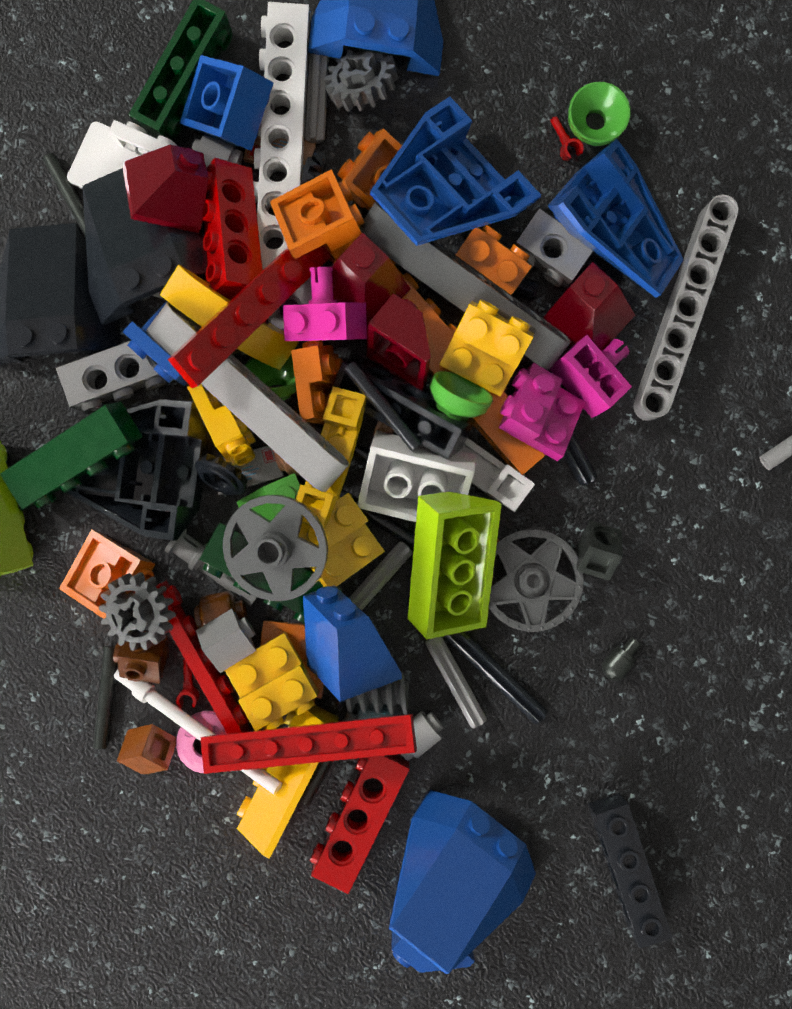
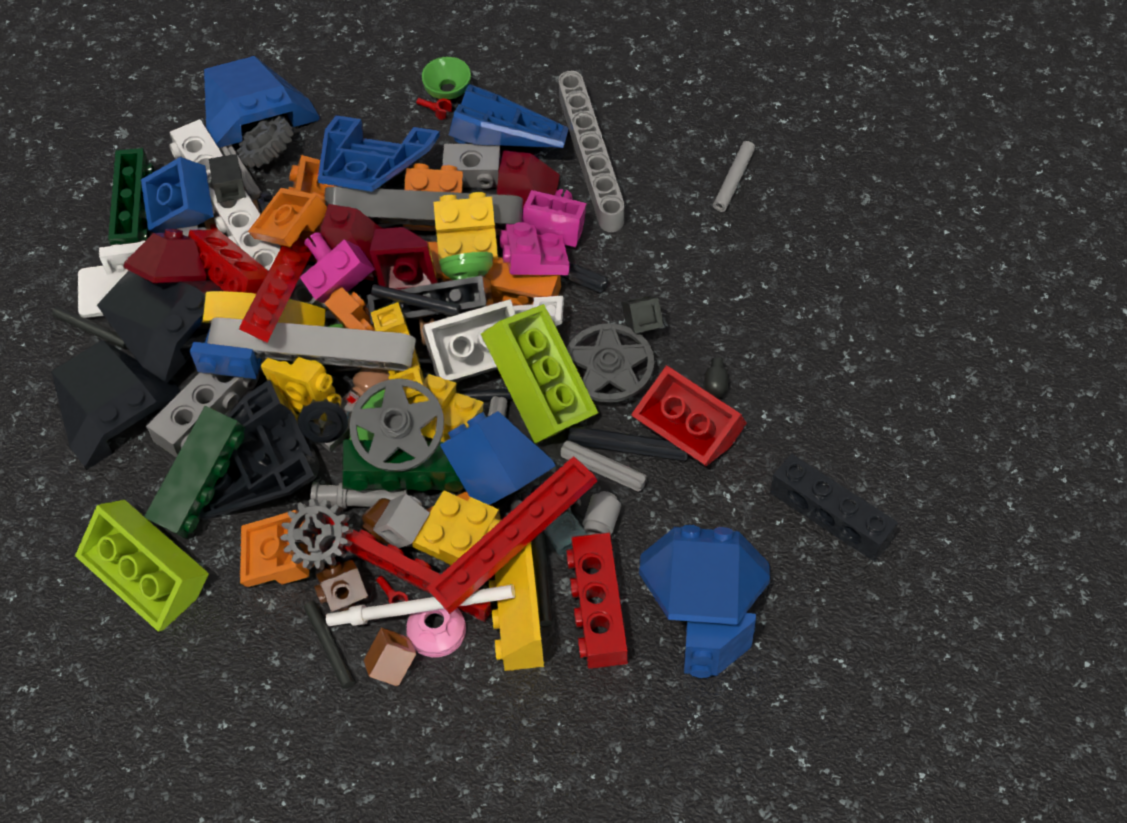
camera: 25 degrees left, 30 degrees down
(287, 112) = (227, 178): none -> pearl dark grey brick
(564, 694) = (689, 417): none -> red slope

